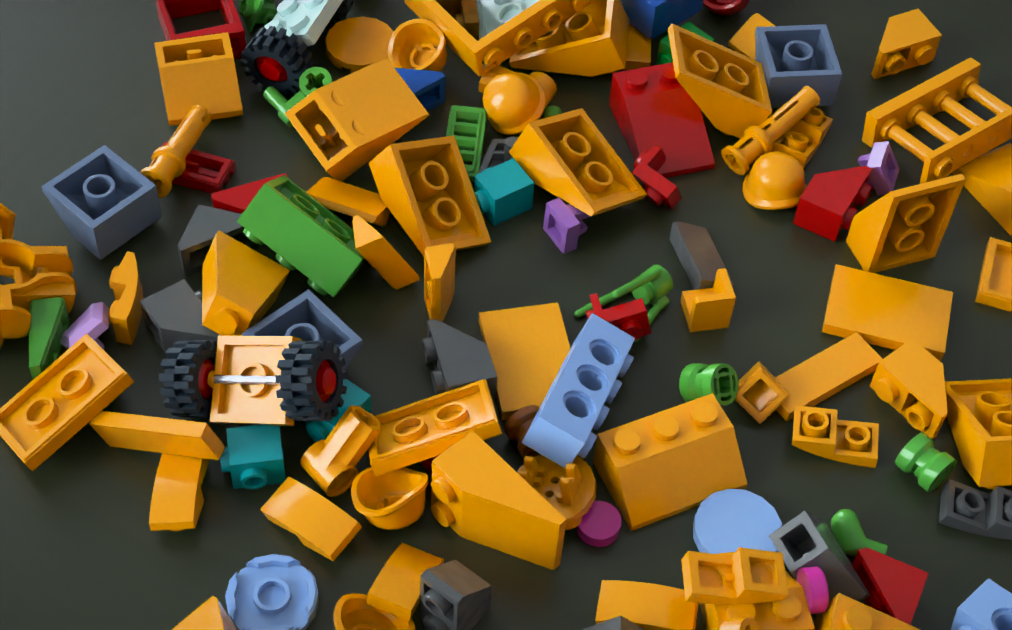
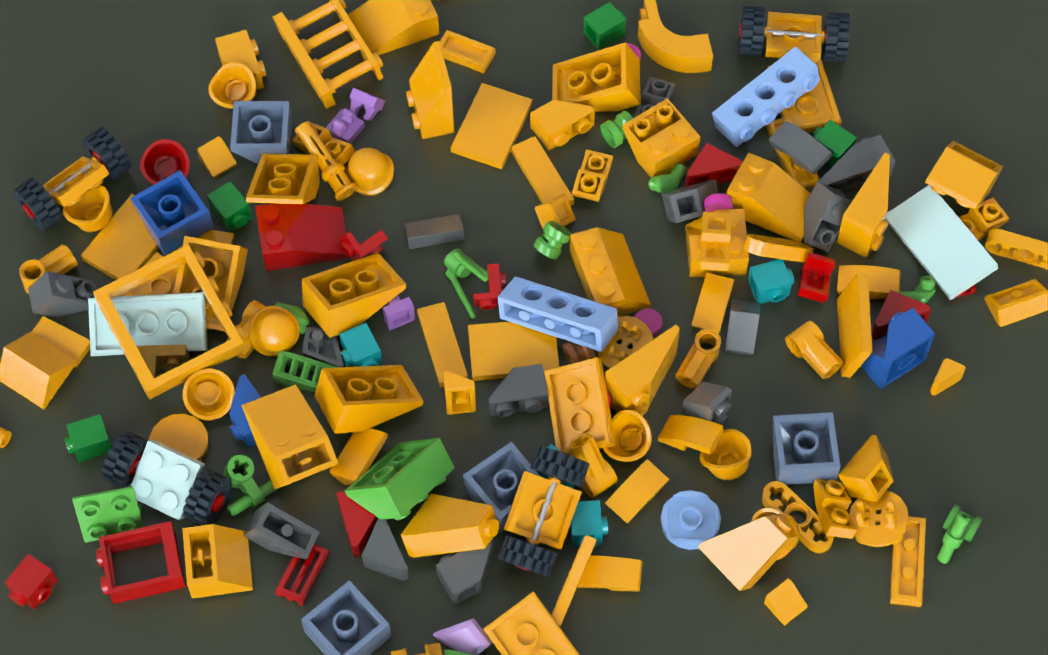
camera: 80 degrees left, 10 degrees up
(126, 309) = (427, 609): light orange slope -> none
(170, 159) = (308, 579): light orange pin -> none
(235, 130) = (281, 532): none -> dark grey slope
(382, 255) = (424, 430): light orange slope -> none
(526, 280) = (441, 341): none -> light orange tile
(539, 589) = (699, 359): none -> light orange piece
(709, 307) = (478, 229): light orange panel -> none
(733, 521) = (657, 245): light blue tile -> none
(832, 201) = (396, 136): red slope -> none
(836, 153) = (345, 126): none -> medium lavender tile
(855, 36) = (231, 84): none -> light orange helmet
(922, 514) = (661, 138): none -> light orange slope

